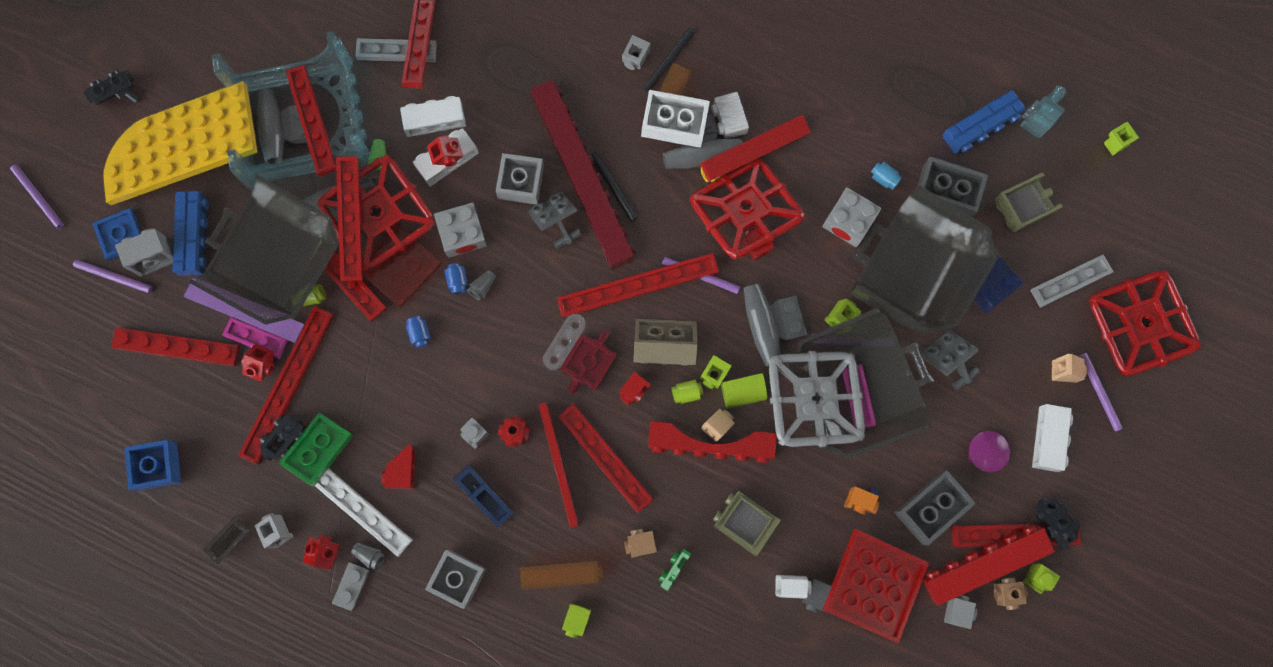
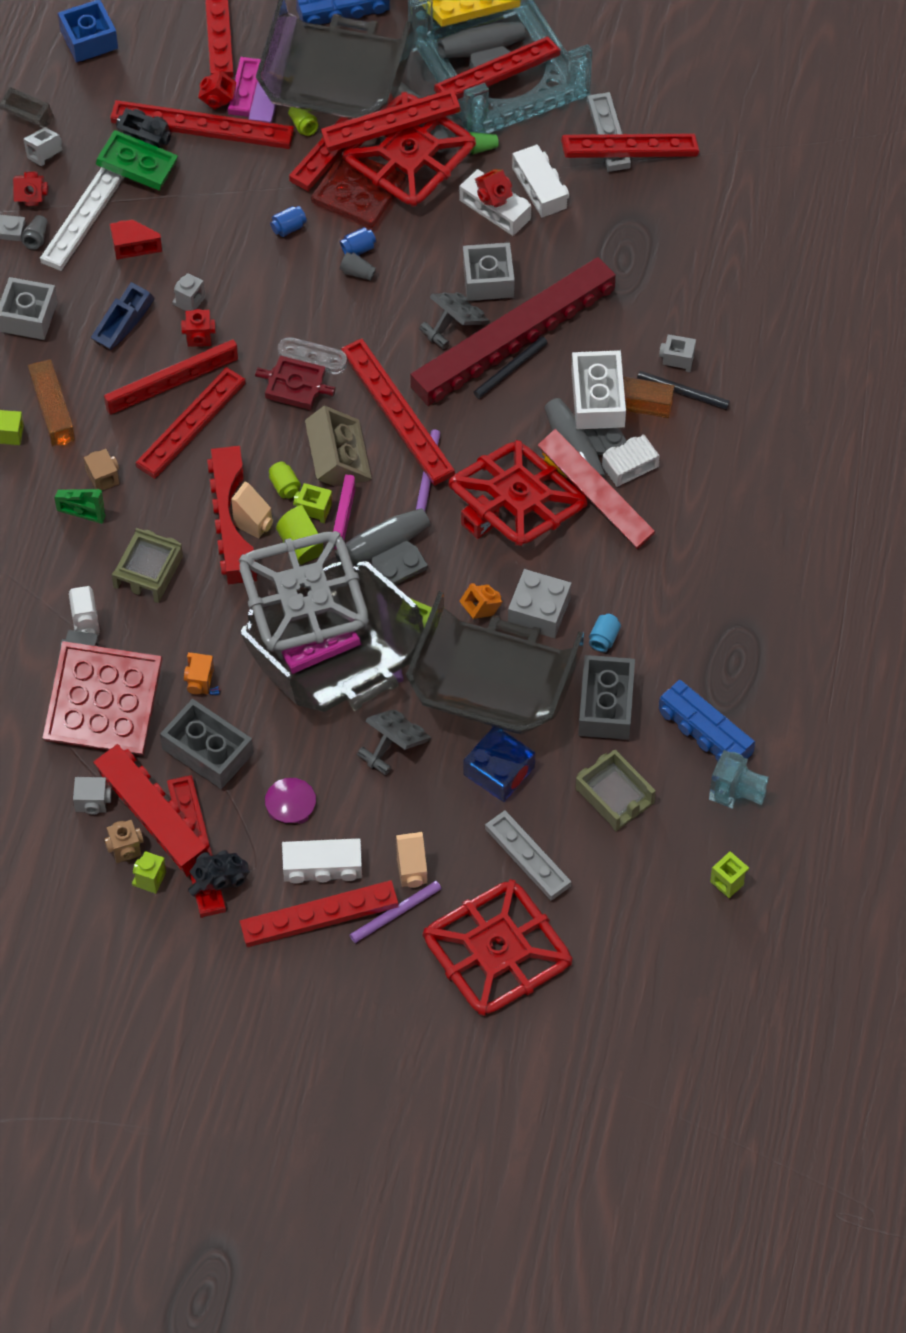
camera: 80 degrees right, 20 degrees down
(460, 230) = (413, 232): light grey brick -> none
(633, 389) = (275, 429): red brick -> none
(729, 350) = (345, 506): none -> dark pink tile
(838, 256) = (488, 600): none -> orange brick
(1097, 451) = (319, 913): none -> red plate

